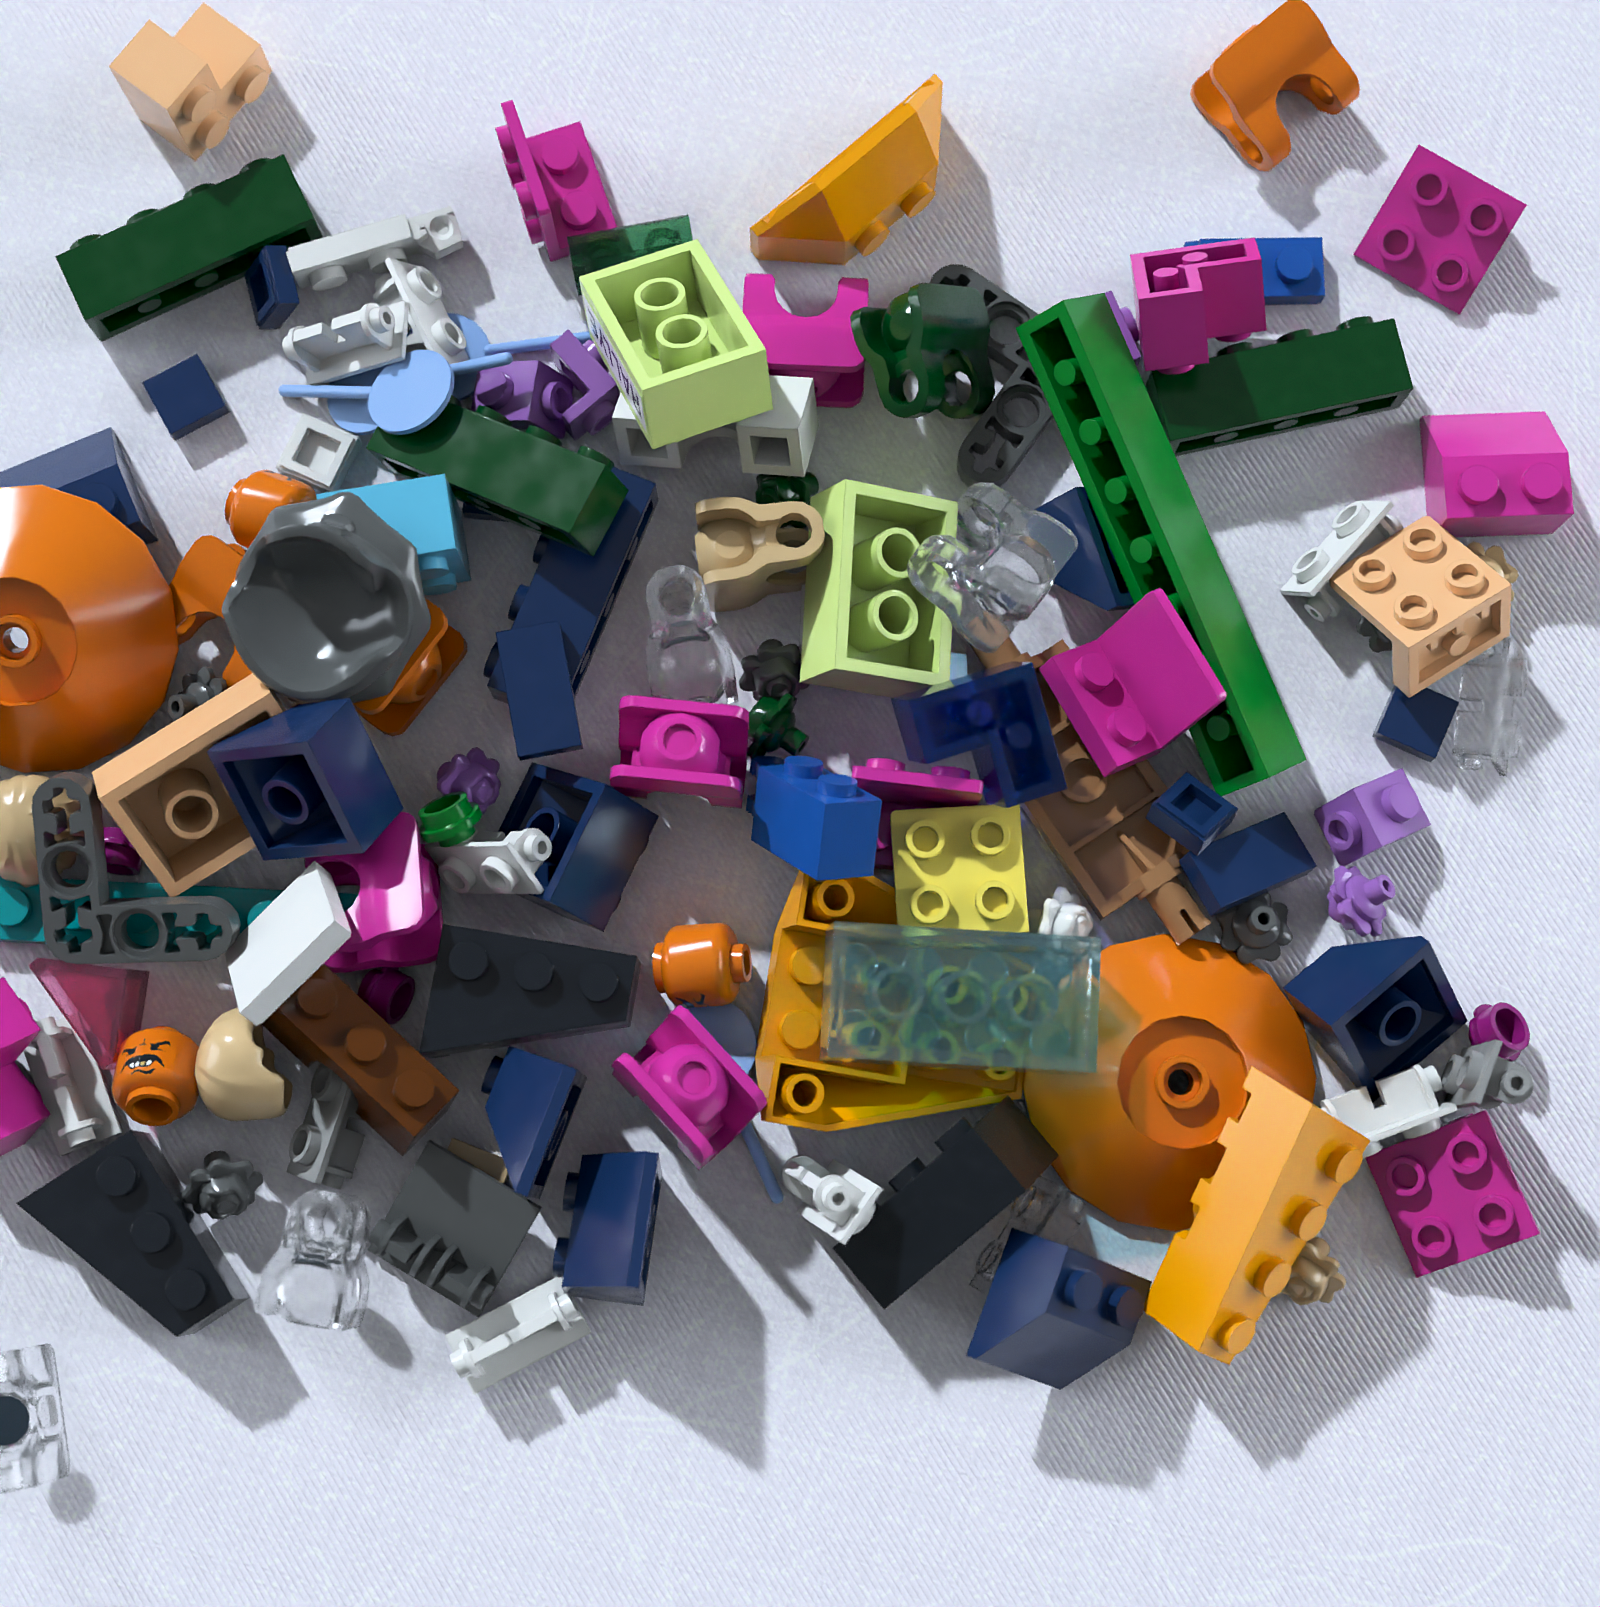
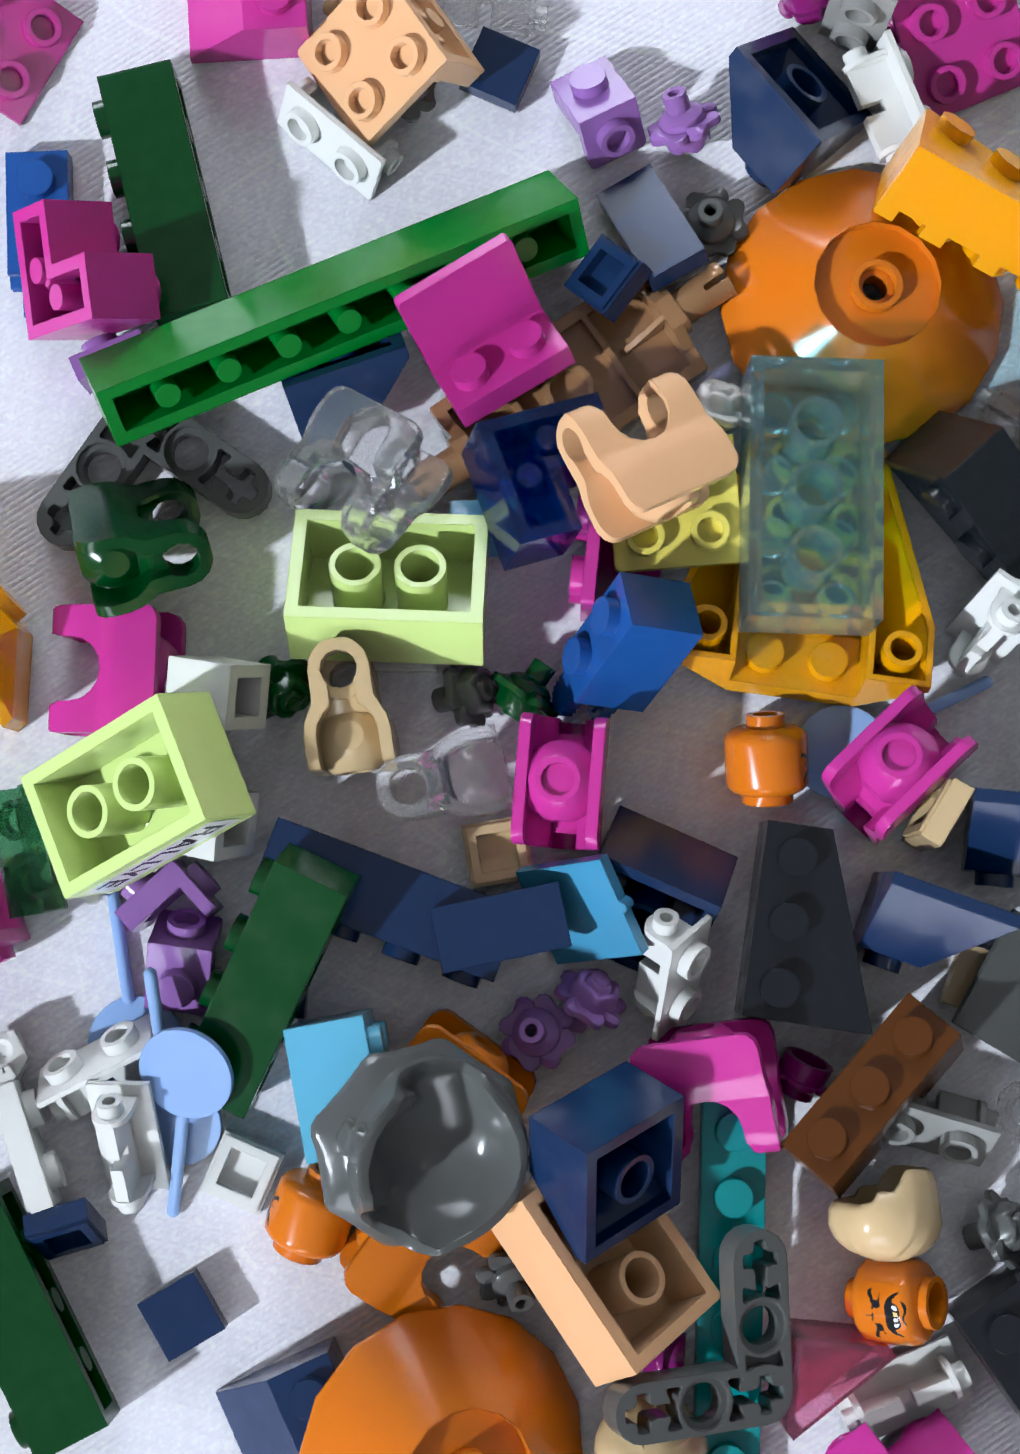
camera: 85 degrees left, 5 degrees up
(287, 943) = (772, 1172): white tile -> none
(438, 733) = (537, 1032): none -> medium lavender plant
(449, 819) = (633, 1015): green plate -> none
(555, 782) = (594, 908): none -> dark azure piece
(604, 694) = (491, 853): none -> tan tile
(637, 1126) = (937, 815): none -> tan tile
(972, 834) = (643, 483): none -> light nougat piece

